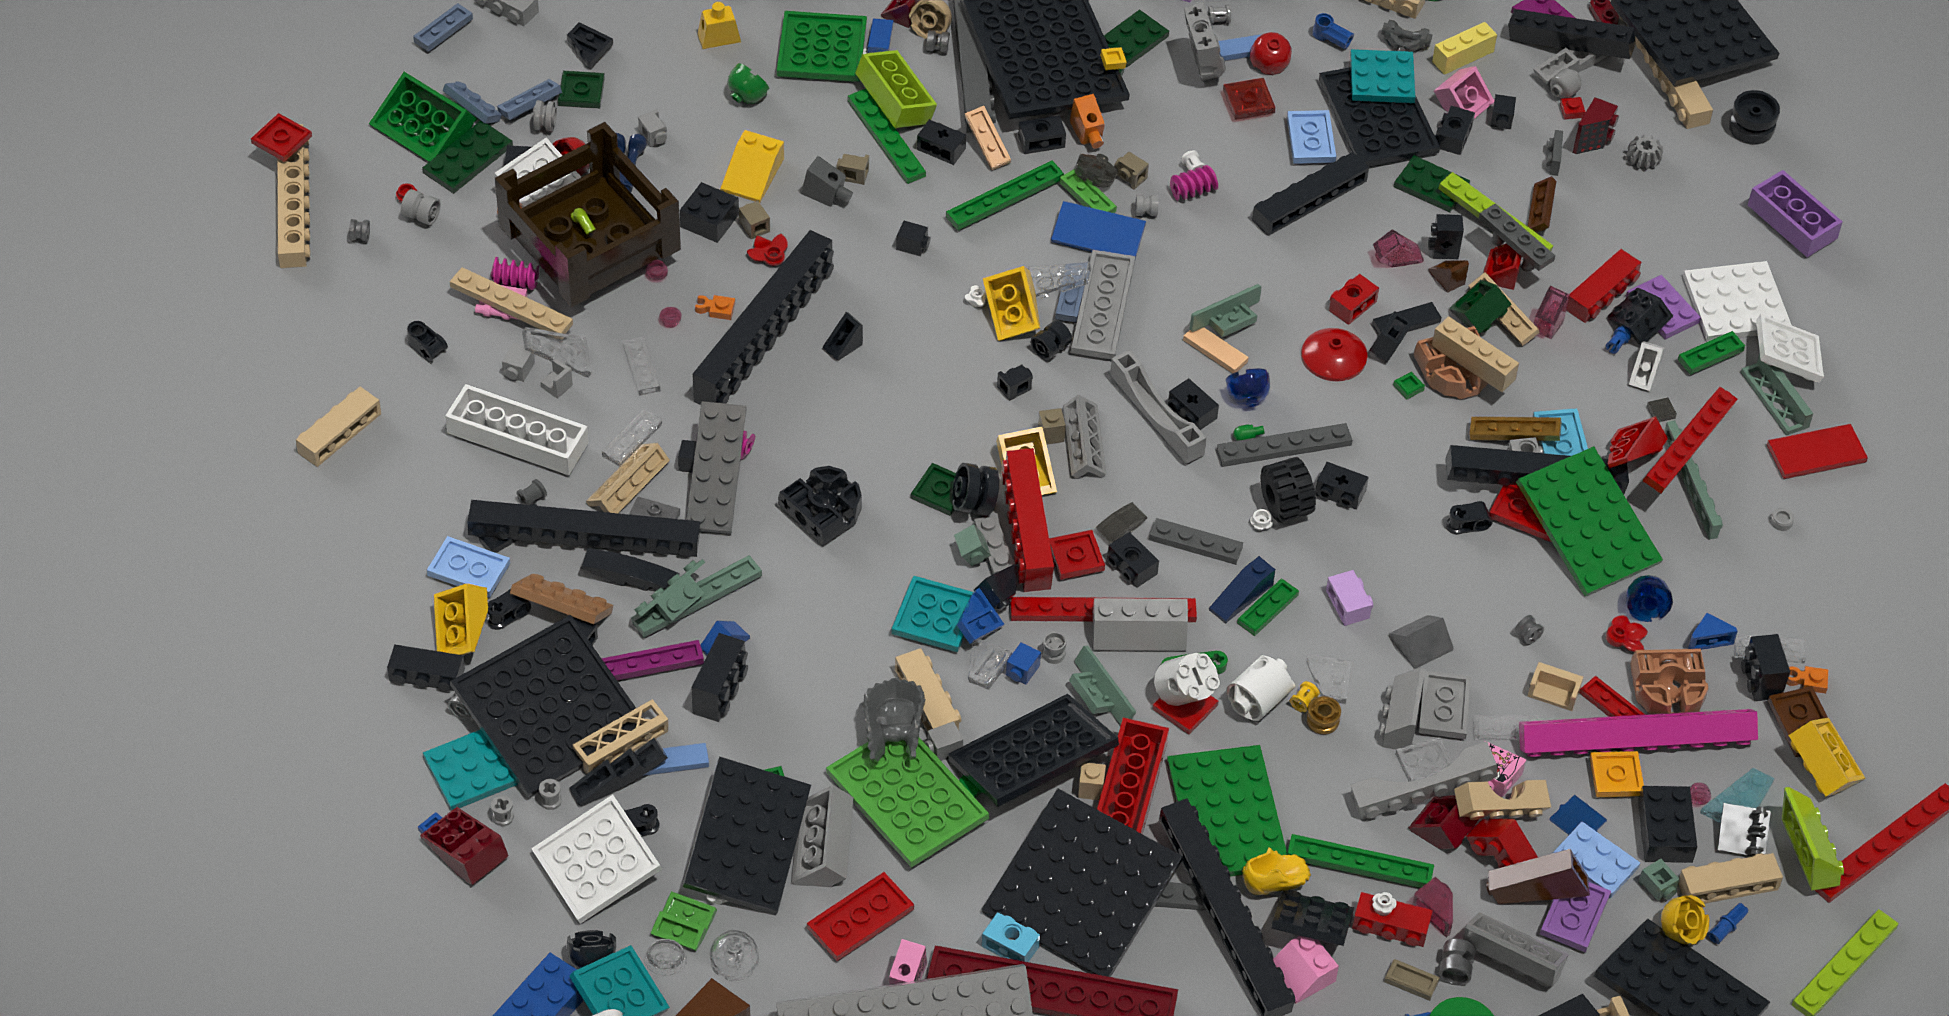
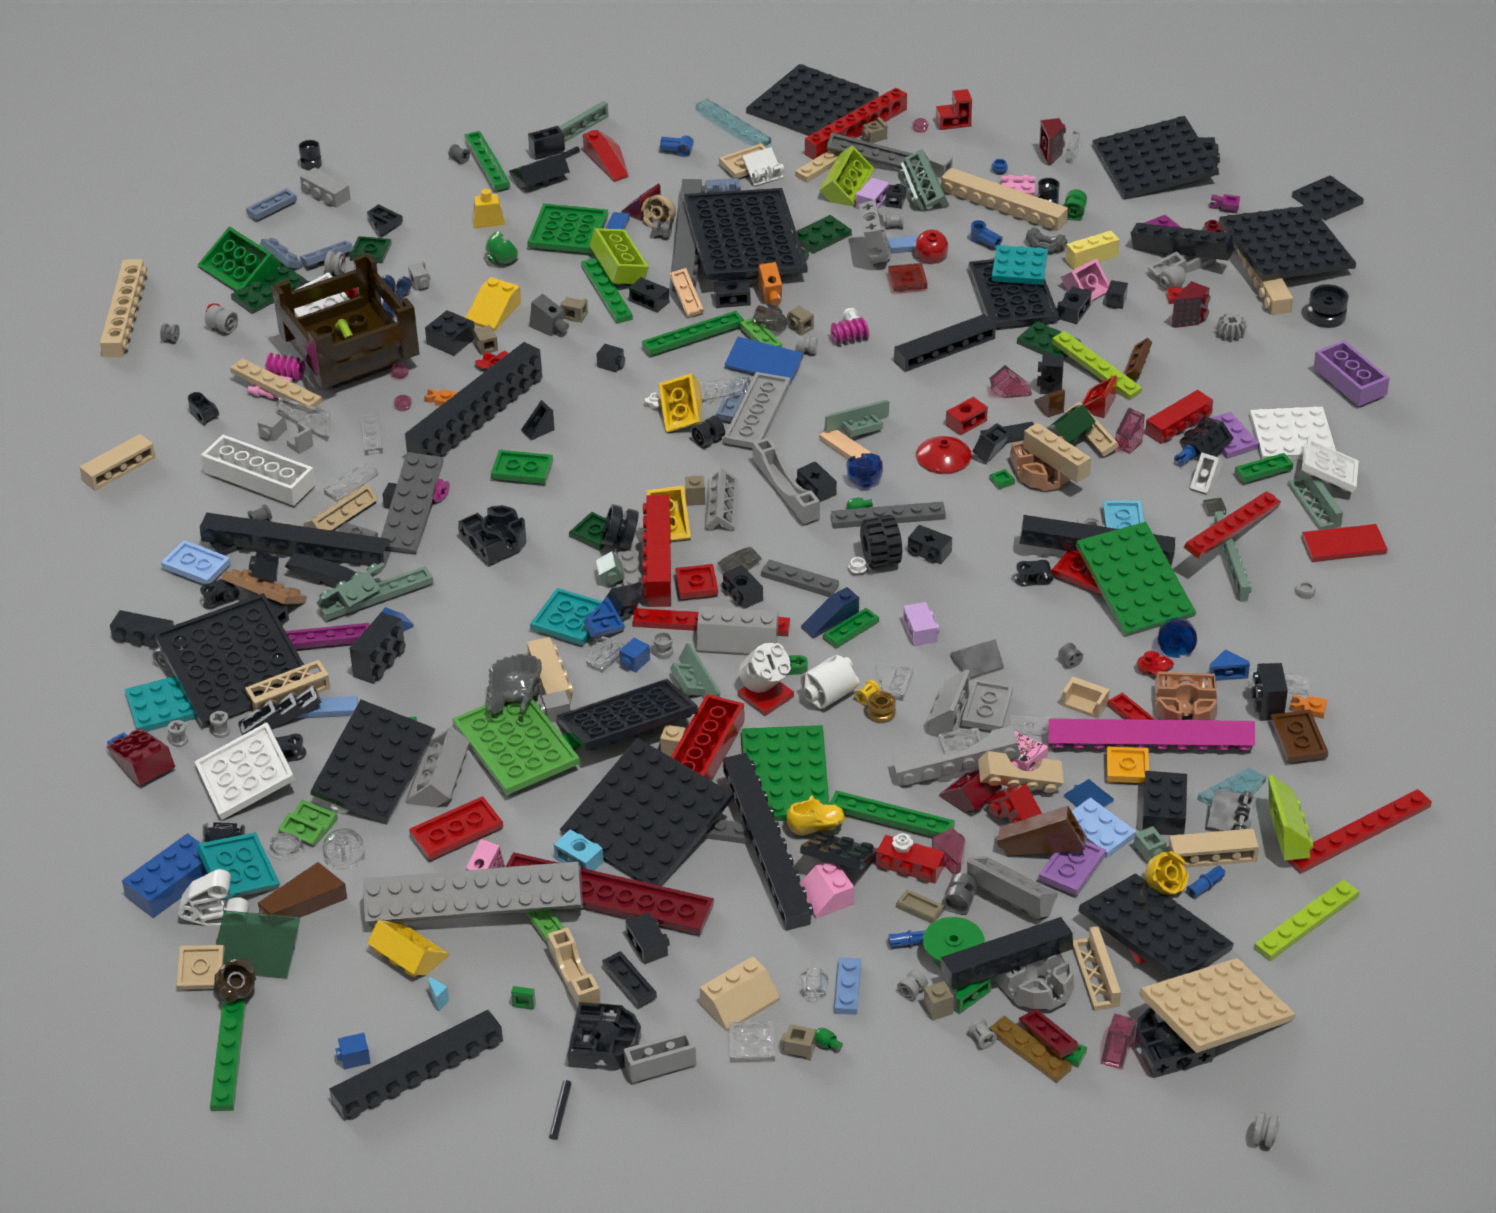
camera: 10 degrees right, 10 degrees down
(281, 137) = (122, 265): red plate -> none
(460, 618) = (177, 592): yellow slope -> none
(557, 571) = (263, 566): none -> black brick
(835, 403) = (522, 466): none -> green plate
(1015, 382) = (672, 459): black brick -> none
(1113, 58) = (798, 241): yellow plate -> none
(1311, 136) = (953, 304): light blue plate -> none
(1507, 230) = (1104, 371): dark grey plate -> none
(1515, 428) = (1074, 510): pearl gold plate -> none
(1554, 157) = (1155, 323): dark grey plate -> none
(1636, 441) = (1187, 524): red wedge -> none
(1700, 793) = (1197, 783): clear pink plate -> none
(1826, 756) = (1312, 760): yellow slope -> none

